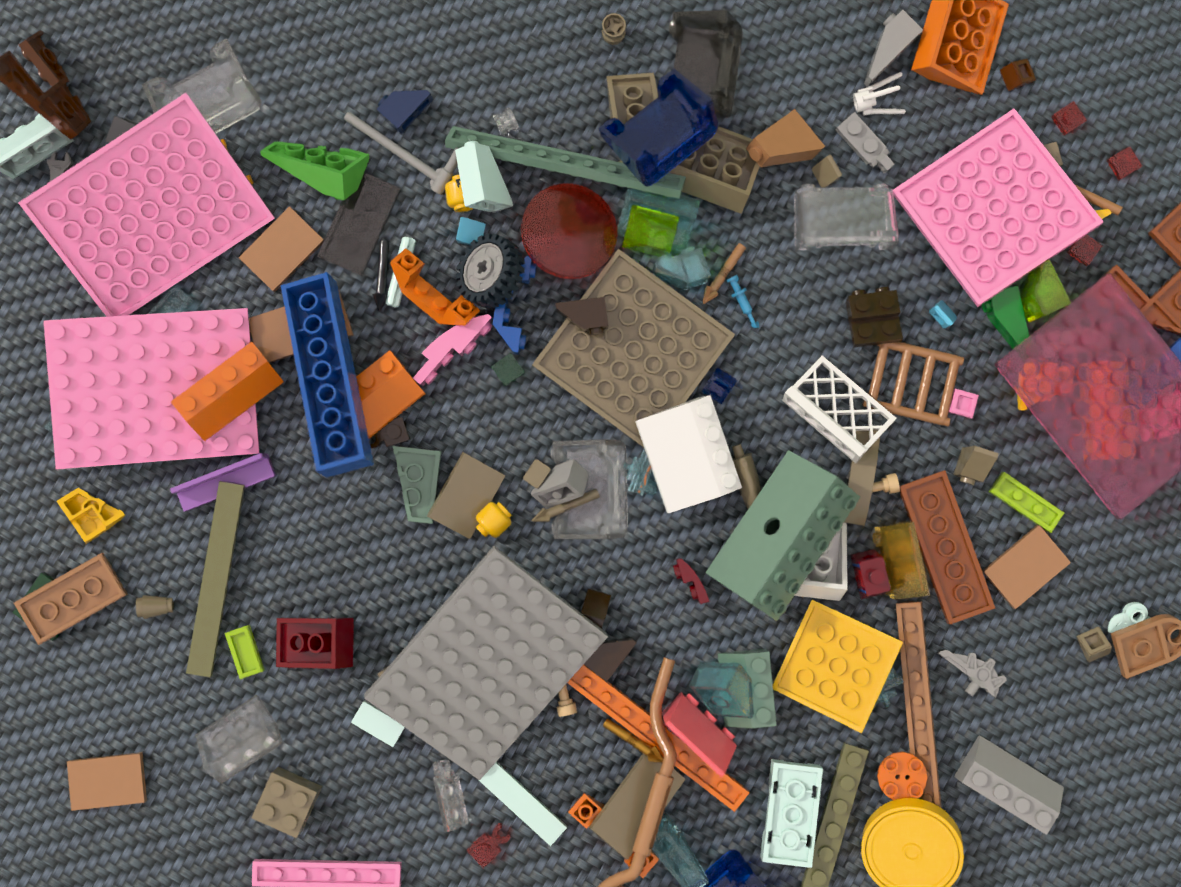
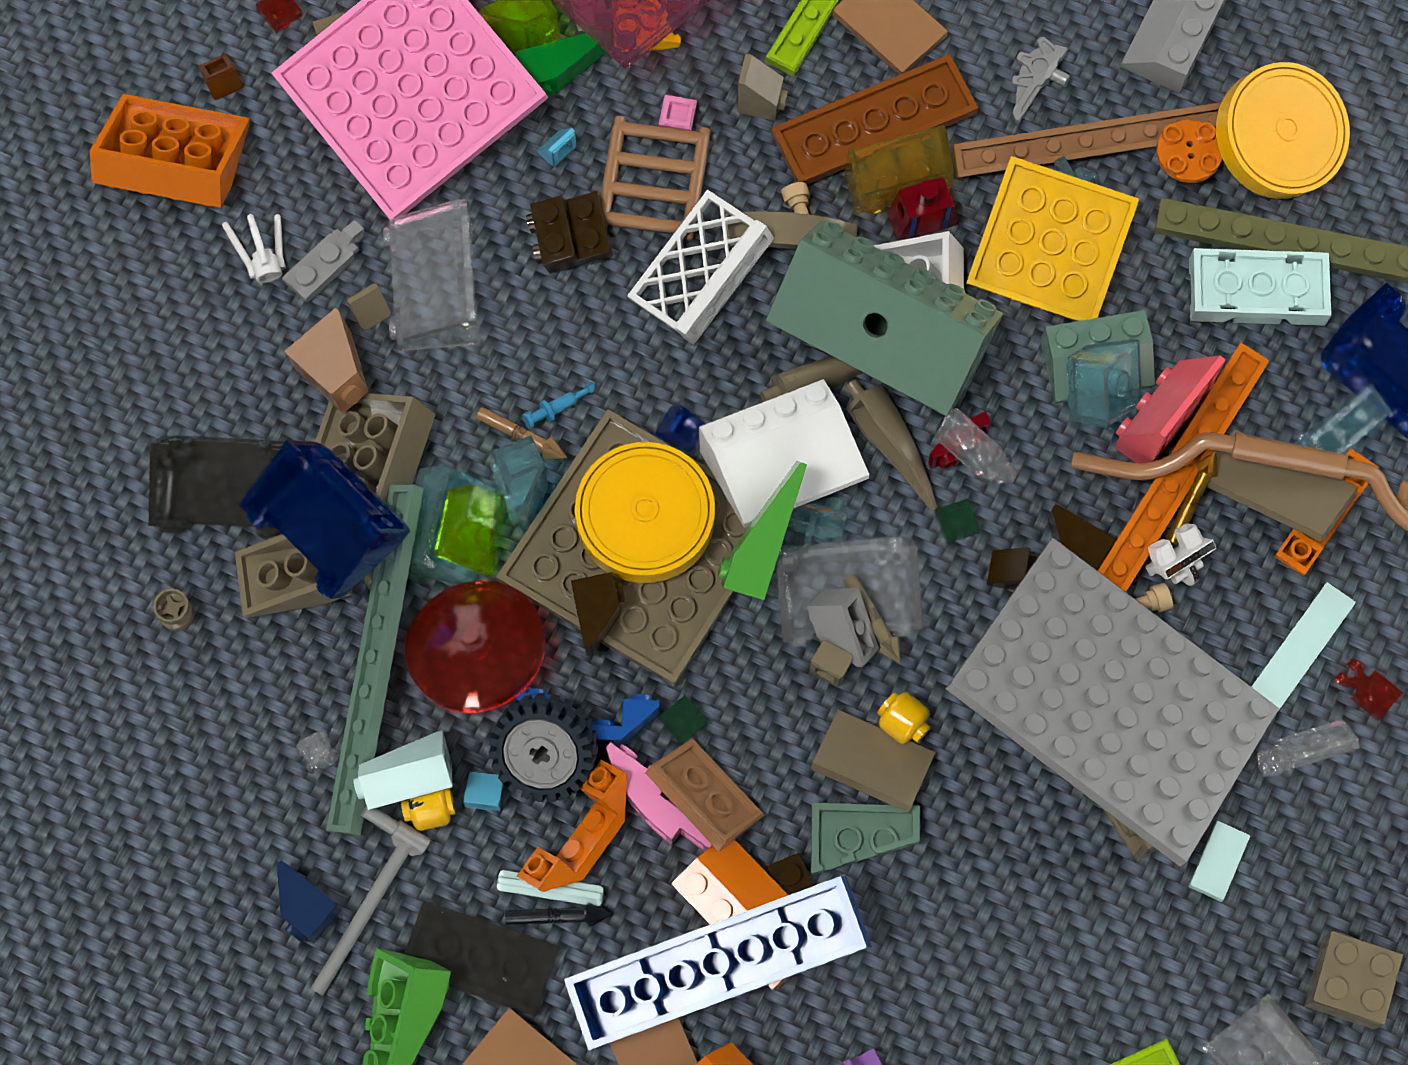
camera: 95 degrees left, 15 degrees down
(314, 643) = (1114, 964): dark red slope -> none
(451, 378) = (705, 794): none -> medium nougat tile
(590, 727) = (1184, 560): none -> white hips
(615, 428) = (756, 552): none -> bright green wedge
(634, 572) = (957, 521): none -> clear green tile
(652, 352) = (645, 512): none -> yellow brick
(682, 589) = (974, 448): none -> clear hinge
(706, 530) = (886, 430): none -> dark tan piece
(896, 37) = (184, 236): light grey slope -> none

